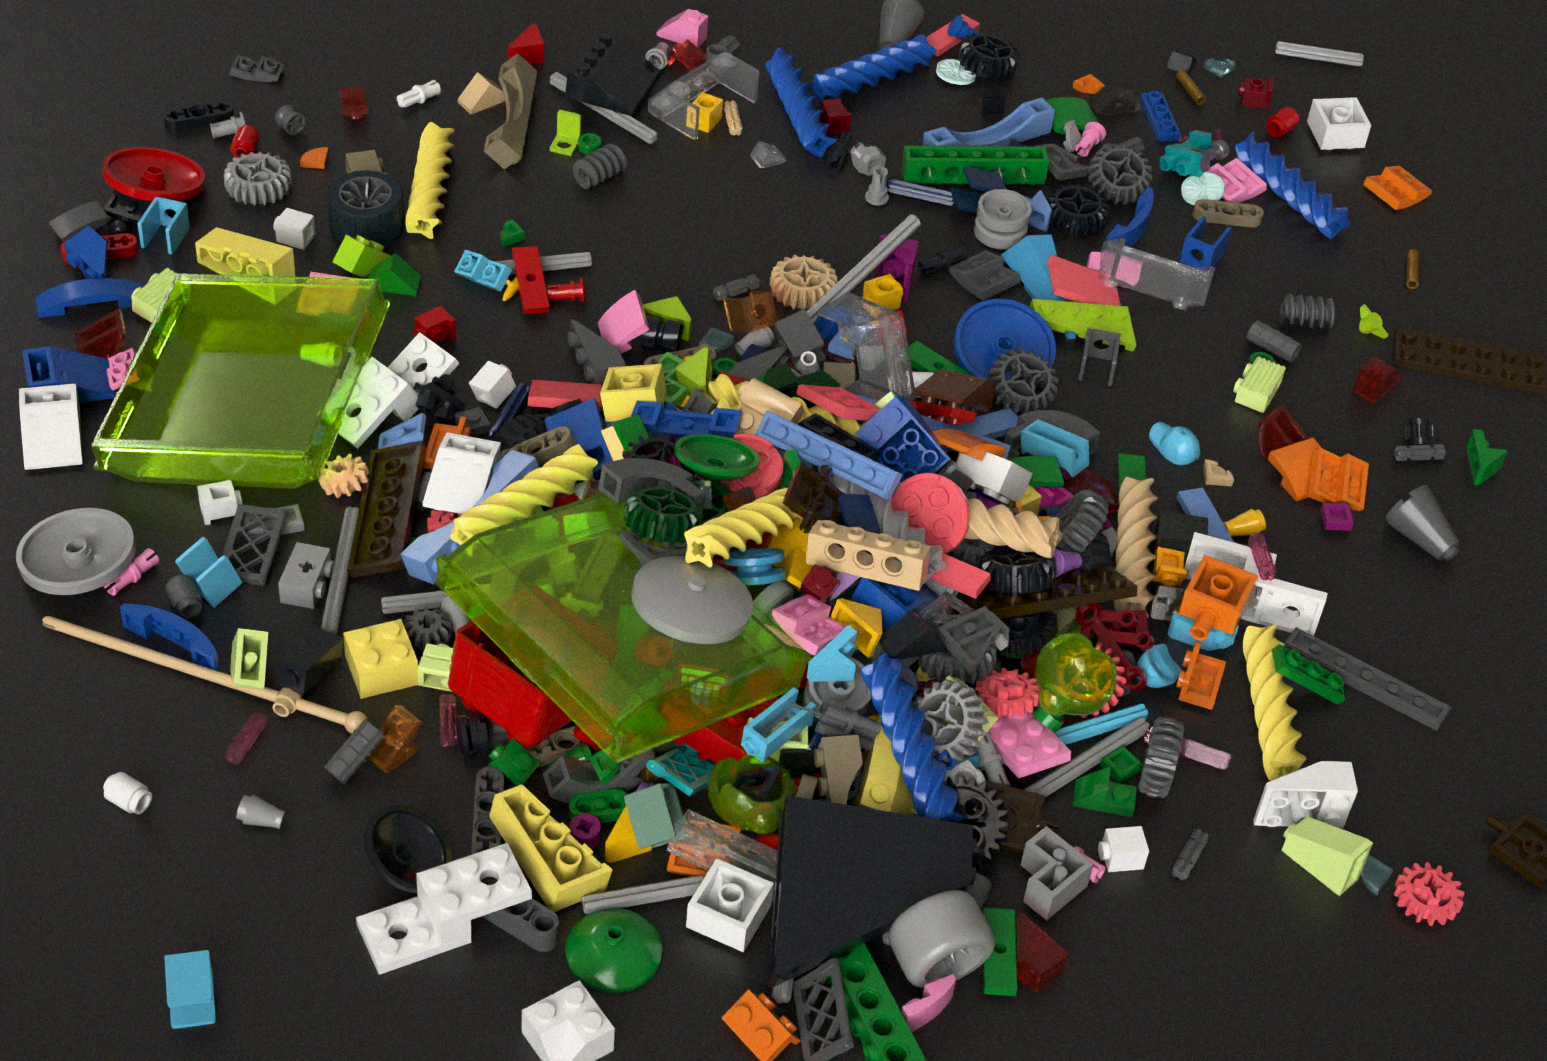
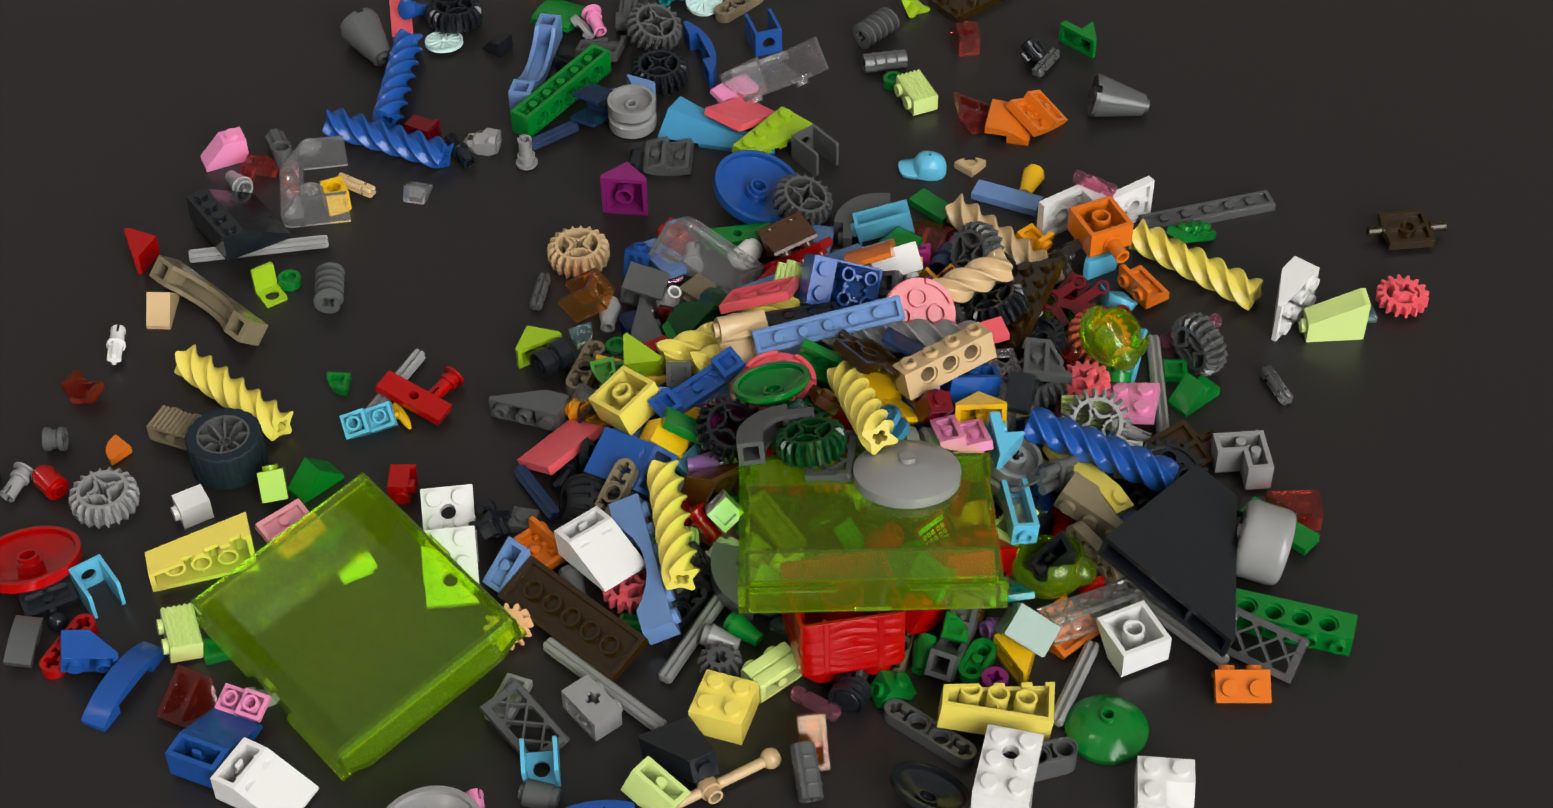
camera: 45 degrees left, 0 degrees up
(218, 500) = (457, 720): white brick -> none
(492, 384) = (504, 483): white brick -> none
(624, 322) = (520, 370): bright pink slope -> none
(867, 264) = (617, 209): light grey axle -> none
(884, 291) = (635, 219): yellow brick -> none
(935, 998) = (1293, 581): bright pink slope -> none
(1124, 849) = (1249, 411): white brick -> none
(1177, 531) = (1016, 211): pearl dark grey piece -> none
(1336, 516) = (1065, 135): magenta plate -> none

